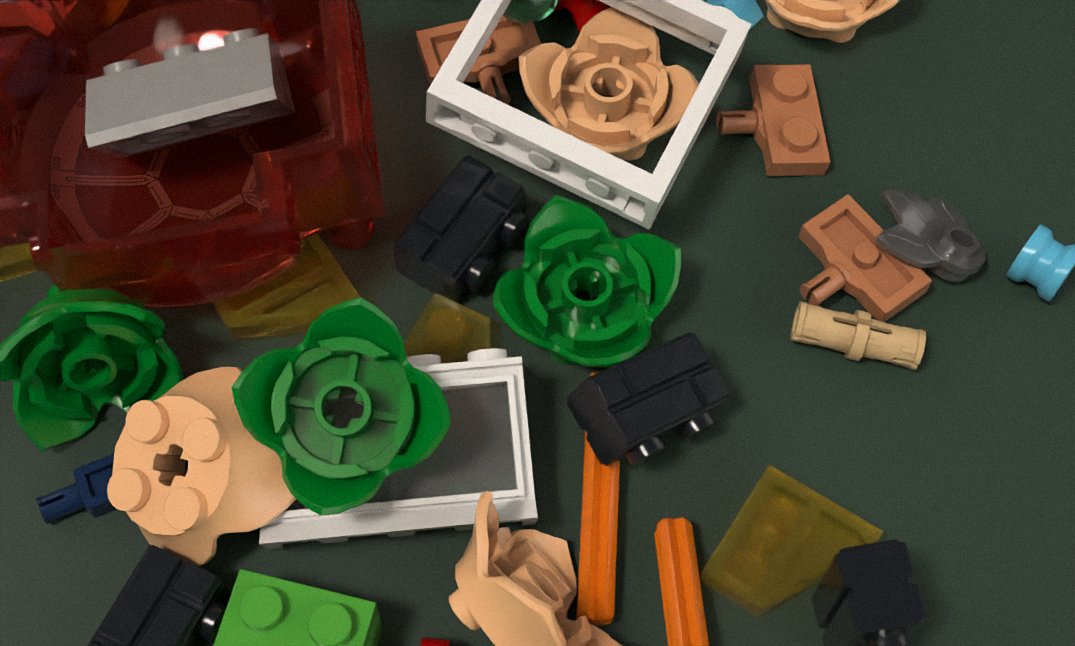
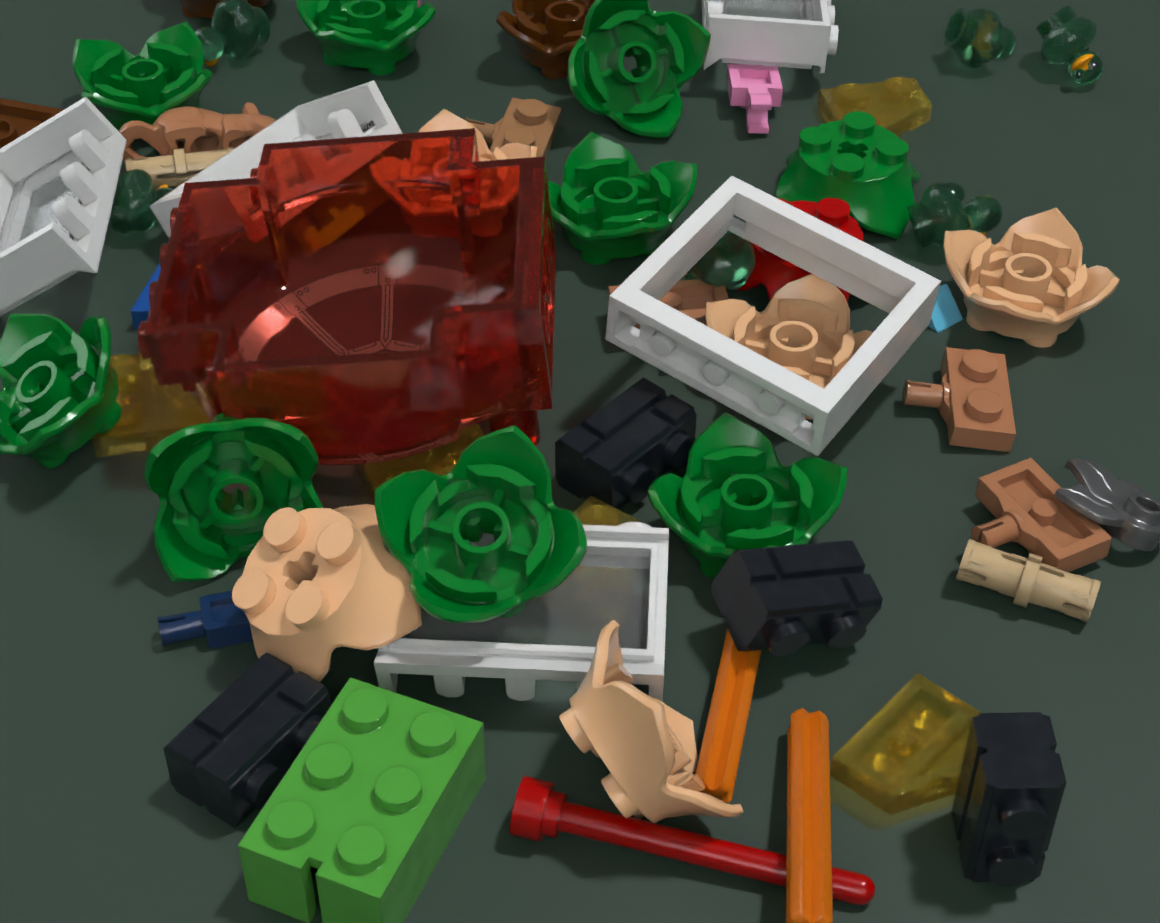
camera: 10 degrees right, 20 degrees down
(186, 94) = (372, 298): light grey slope -> none

